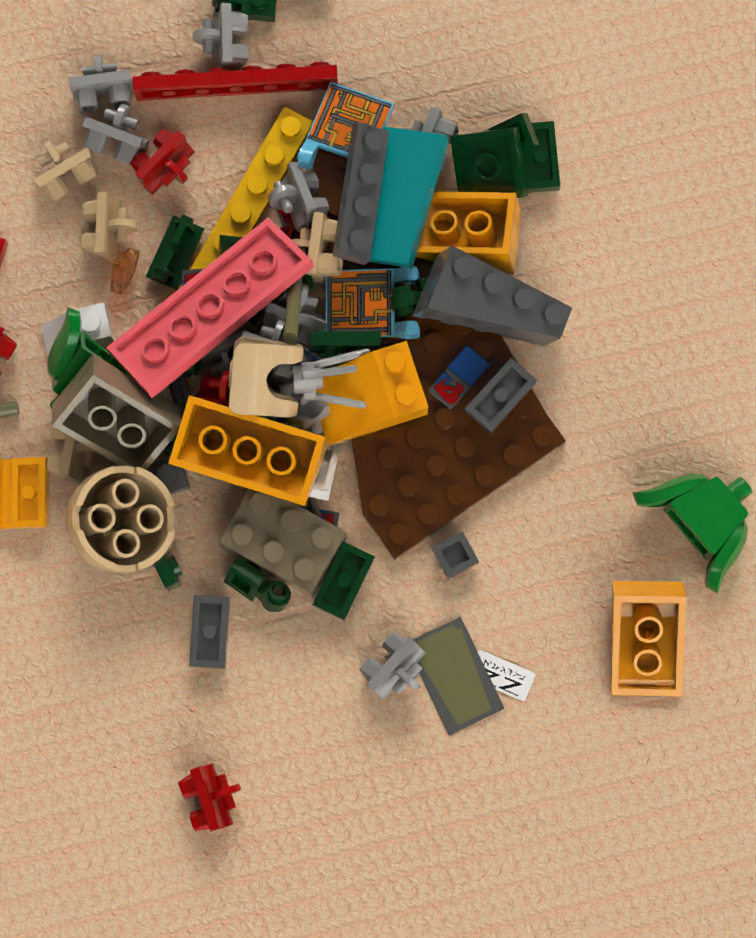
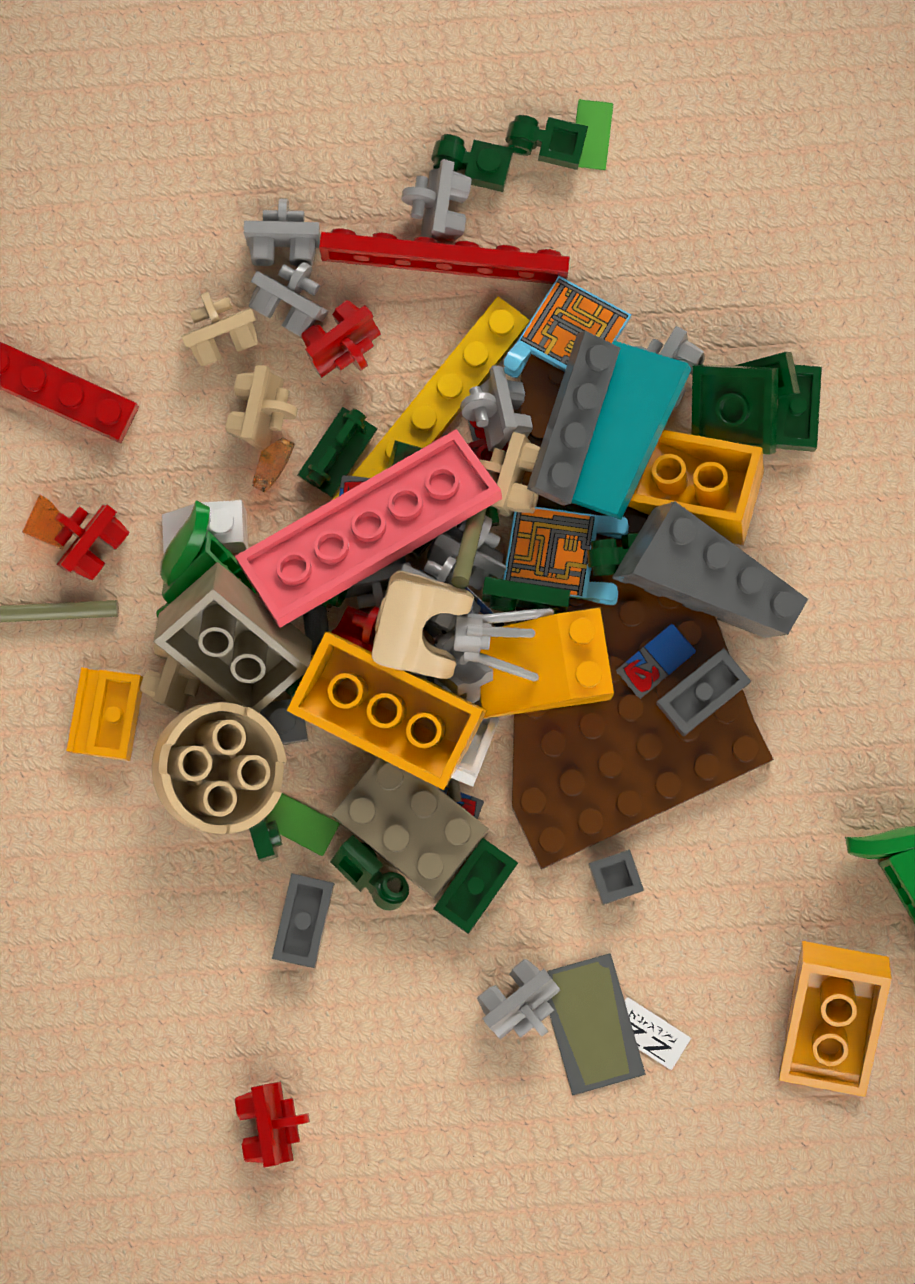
camera: 10 degrees right, 0 degrees up
(196, 555) = (303, 824): none -> bright green sticker

